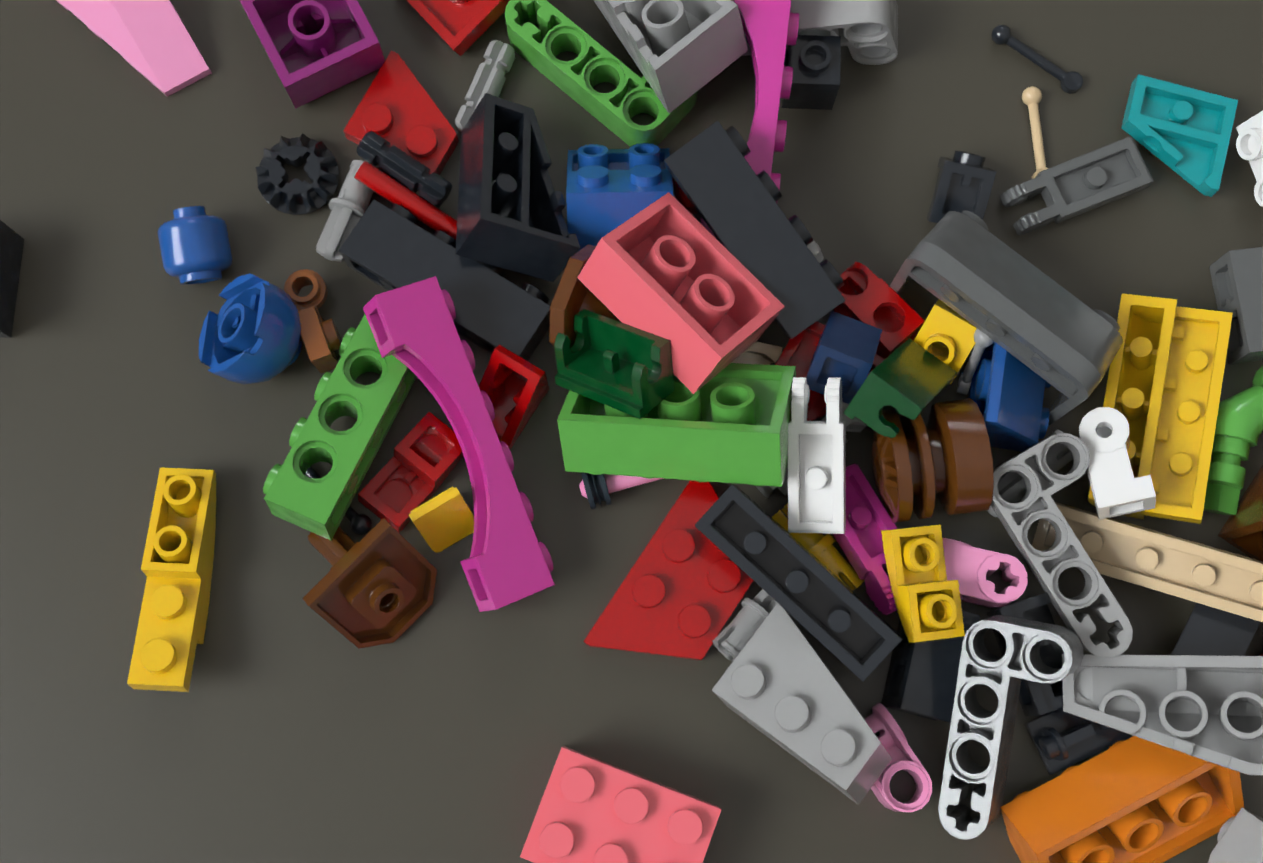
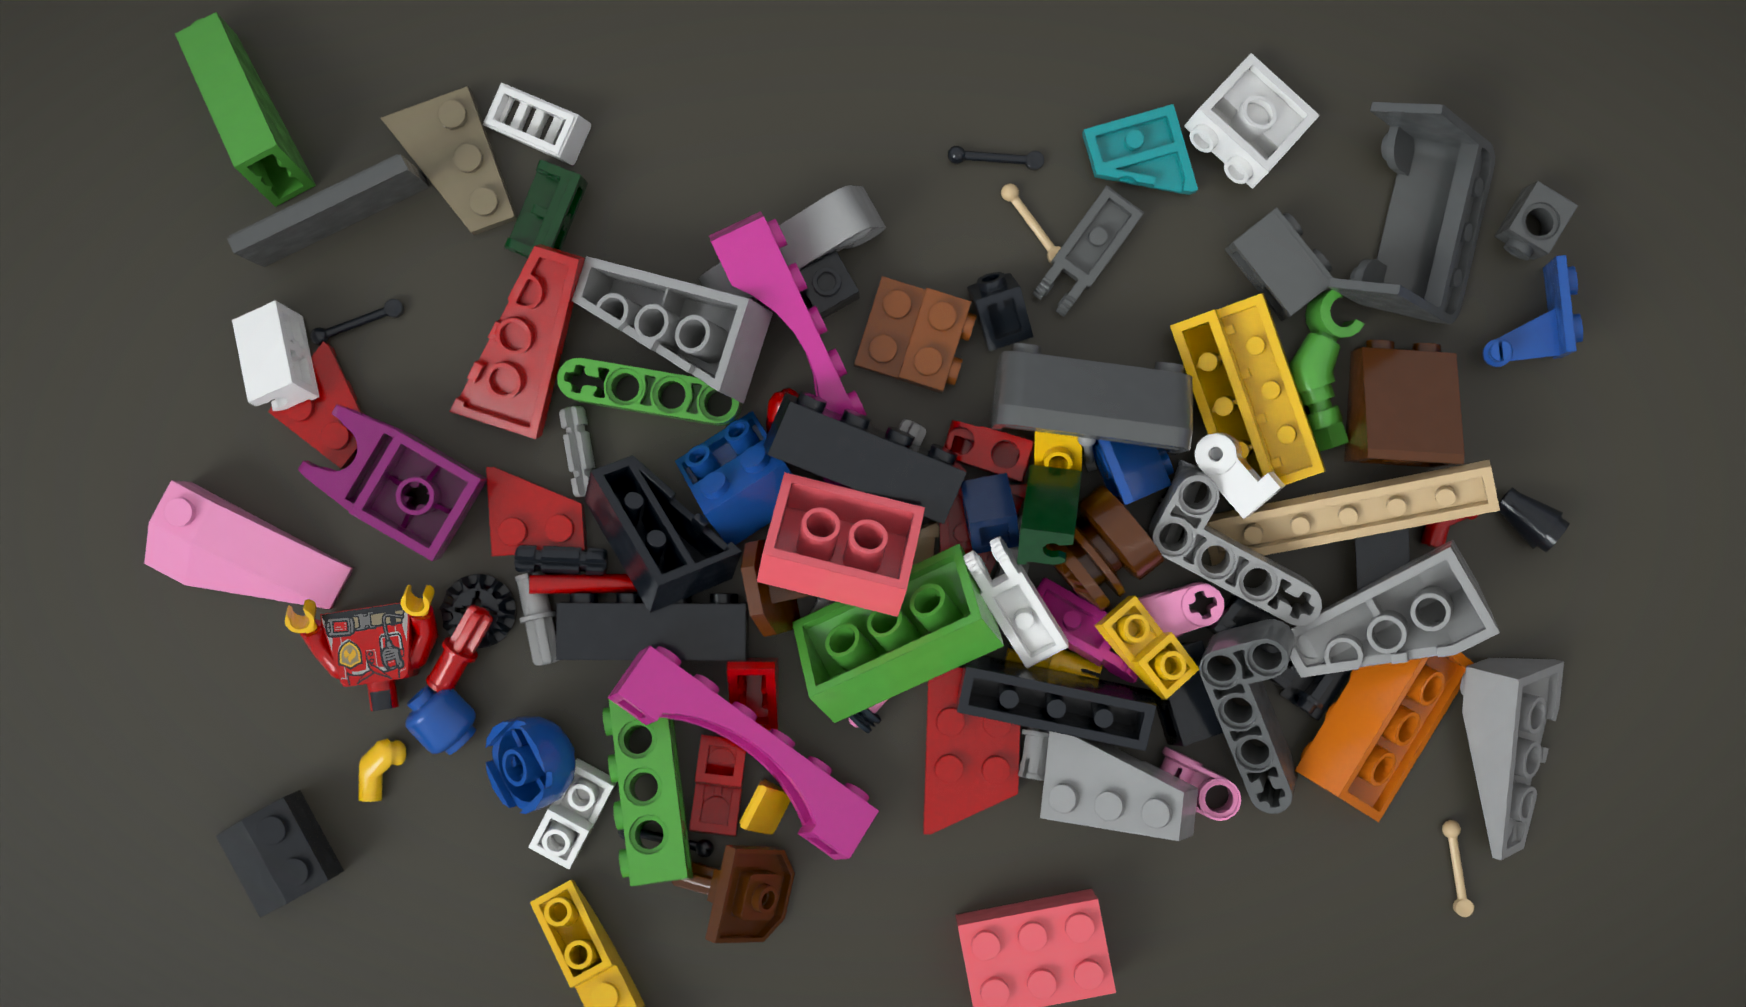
camera: 25 degrees left, 10 degrees up
(104, 254) = (373, 766): none -> yellow arm
(179, 138) = (371, 643): none -> torso
(256, 415) = (573, 816): none -> white slope
(257, 189) = (460, 649): none -> red axle
(318, 335) = (581, 729): dark orange plate -> none
(615, 364) = (825, 629): dark green hinge -> none
(866, 168) = (915, 335): none -> dark orange plate

